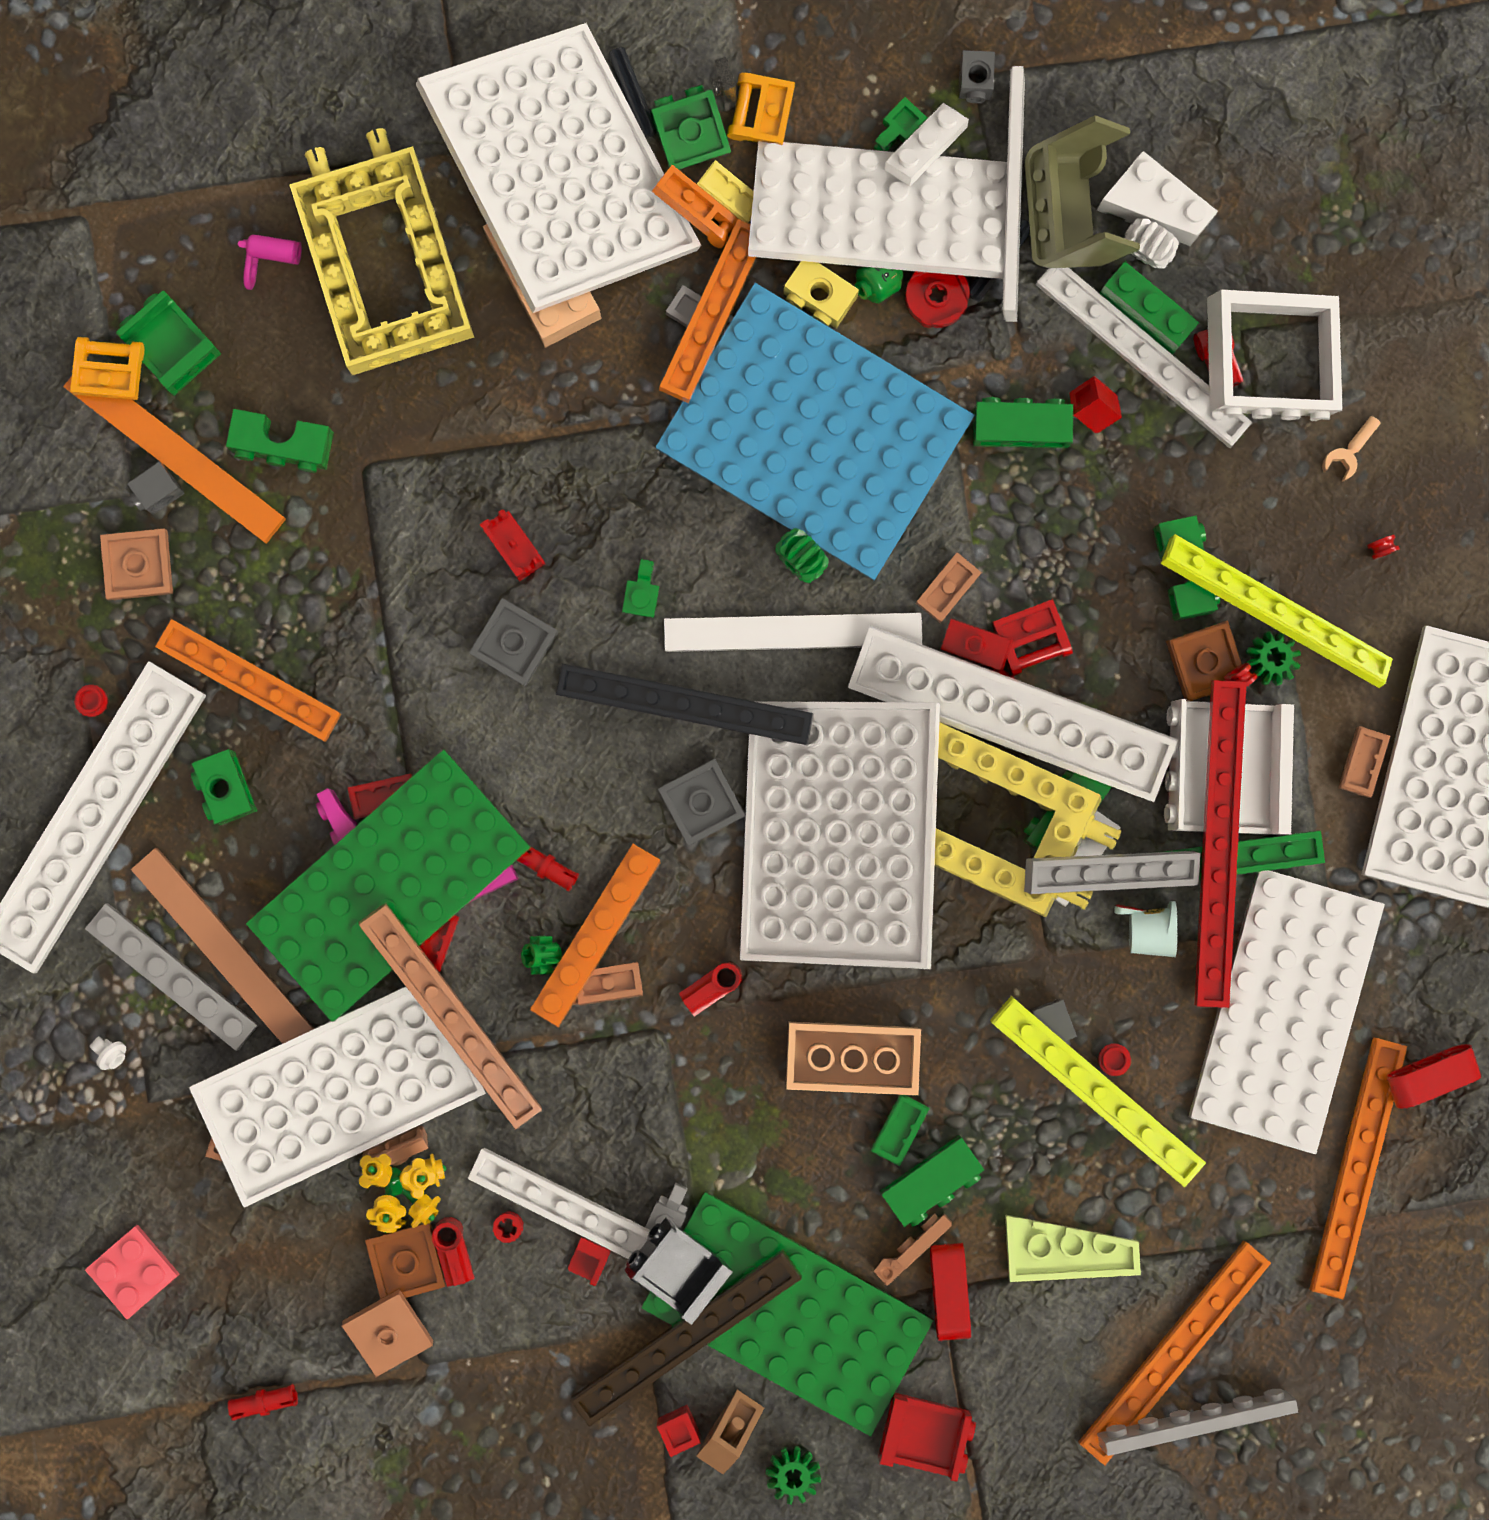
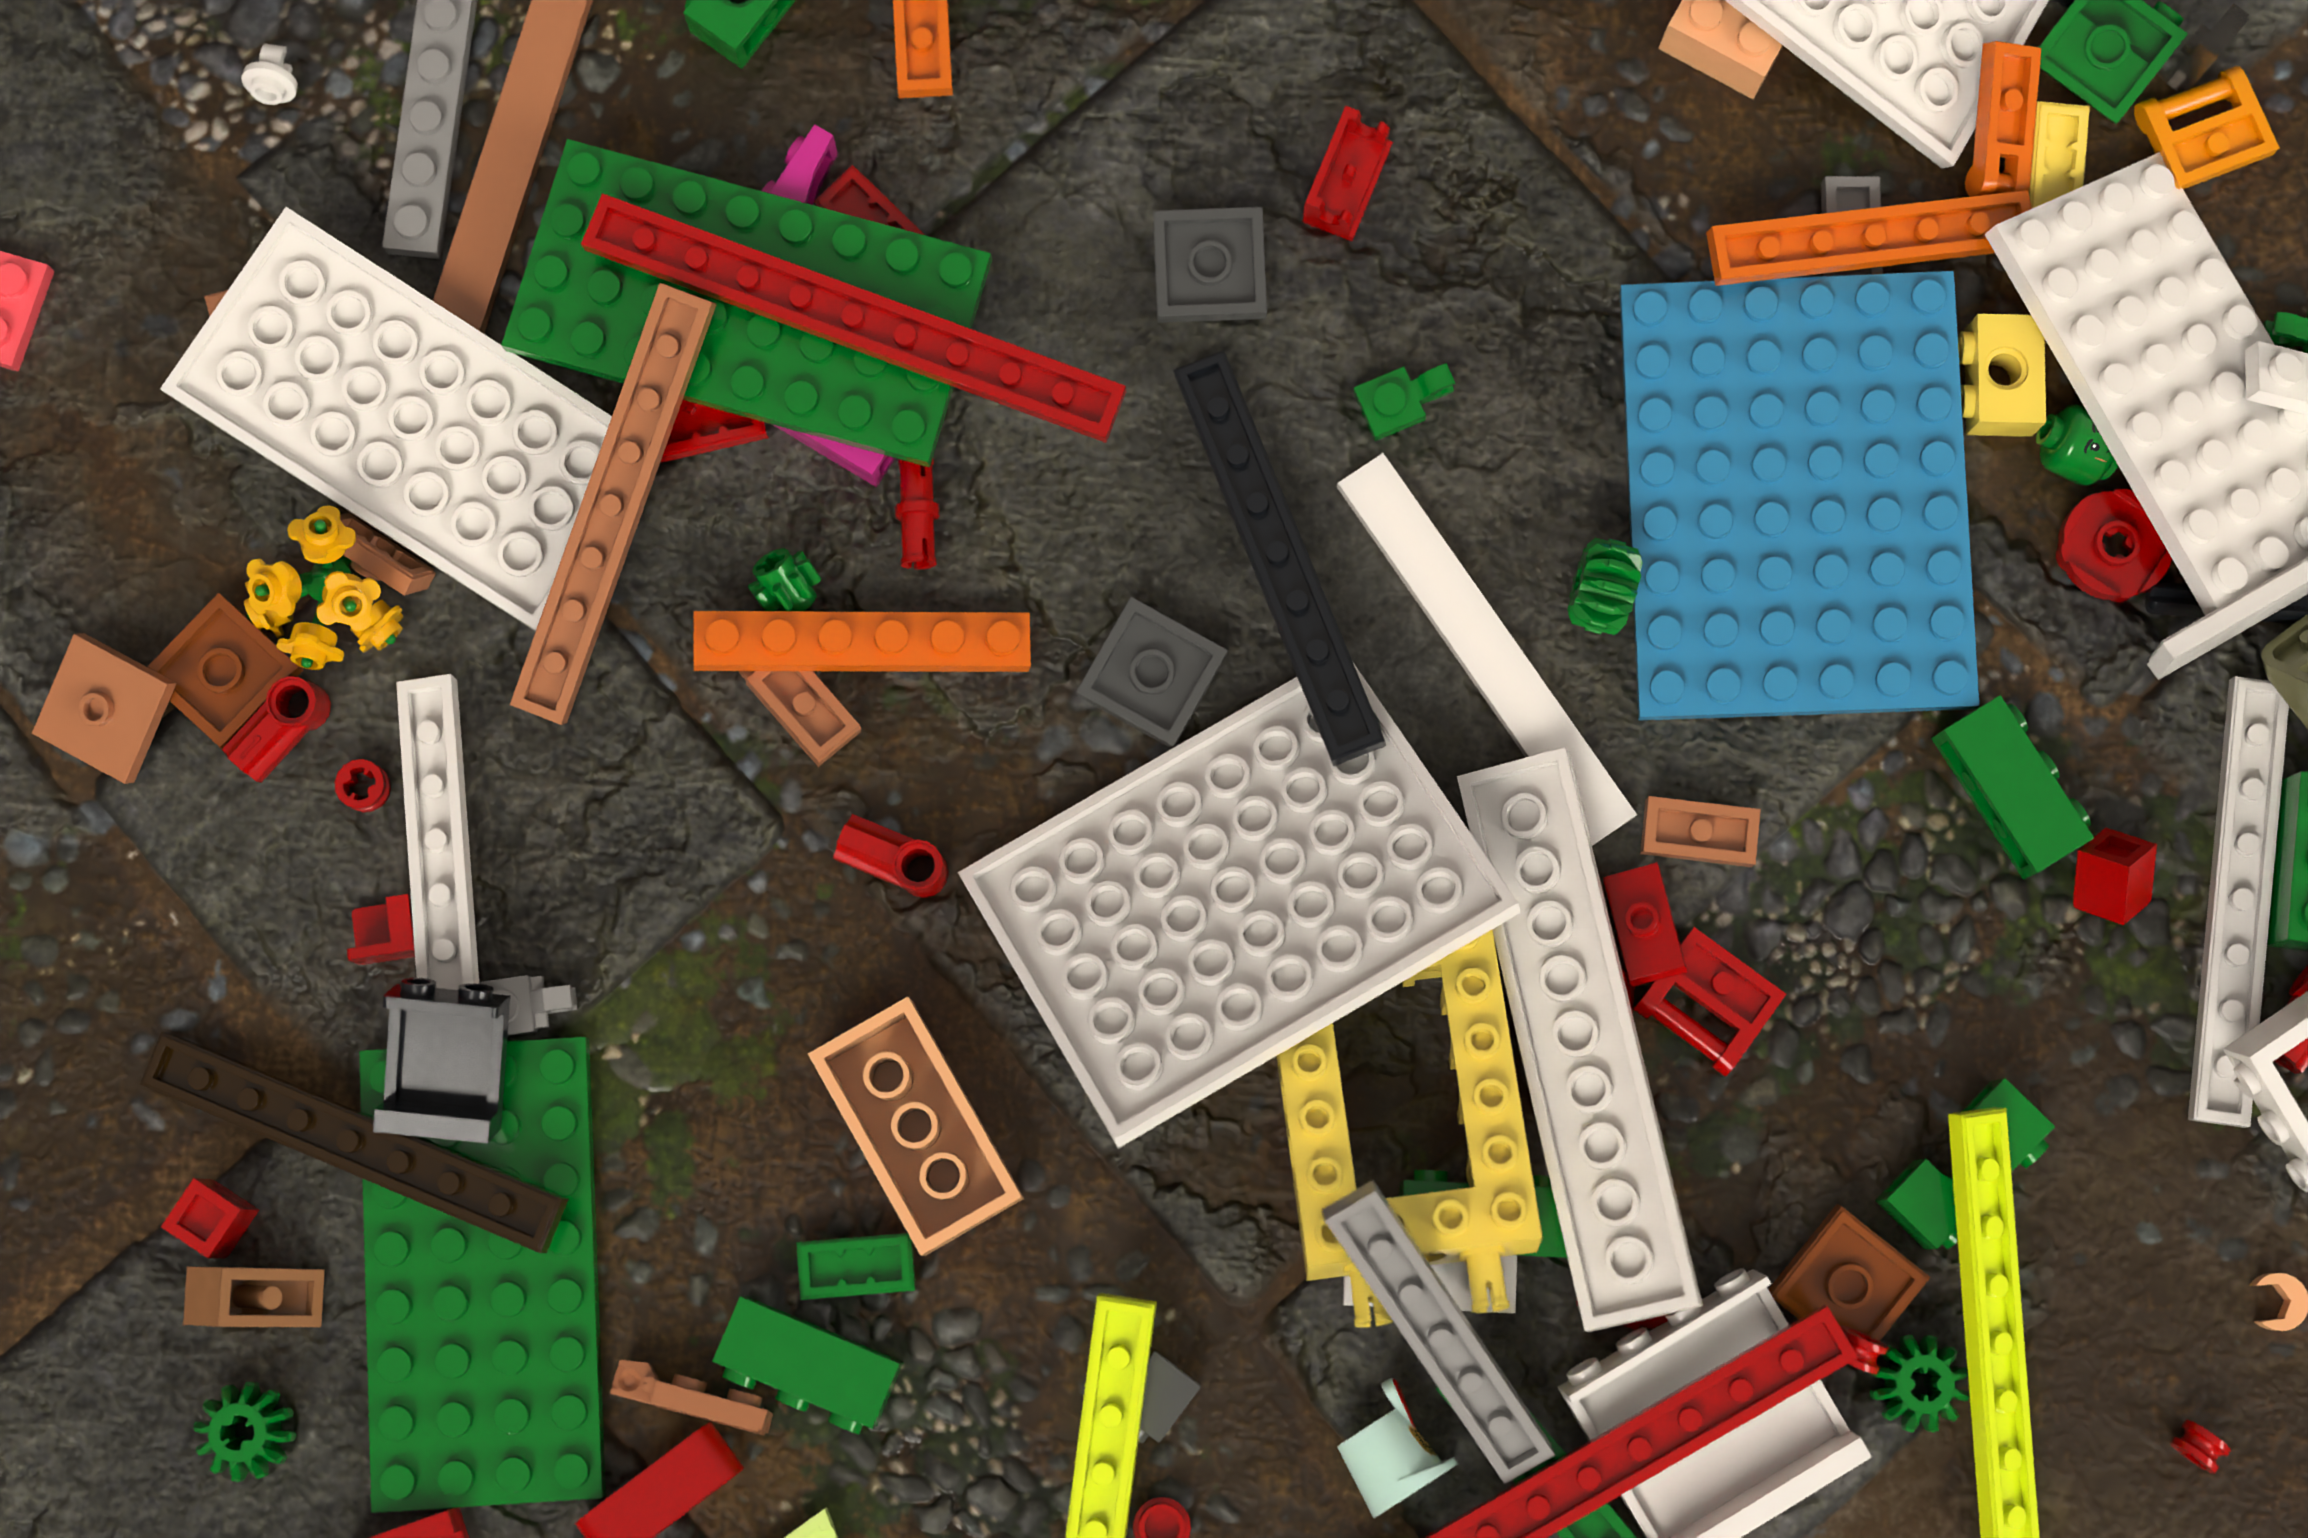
camera: 65 degrees right, 5 degrees down
(435, 839) = (854, 318): none -> red plate

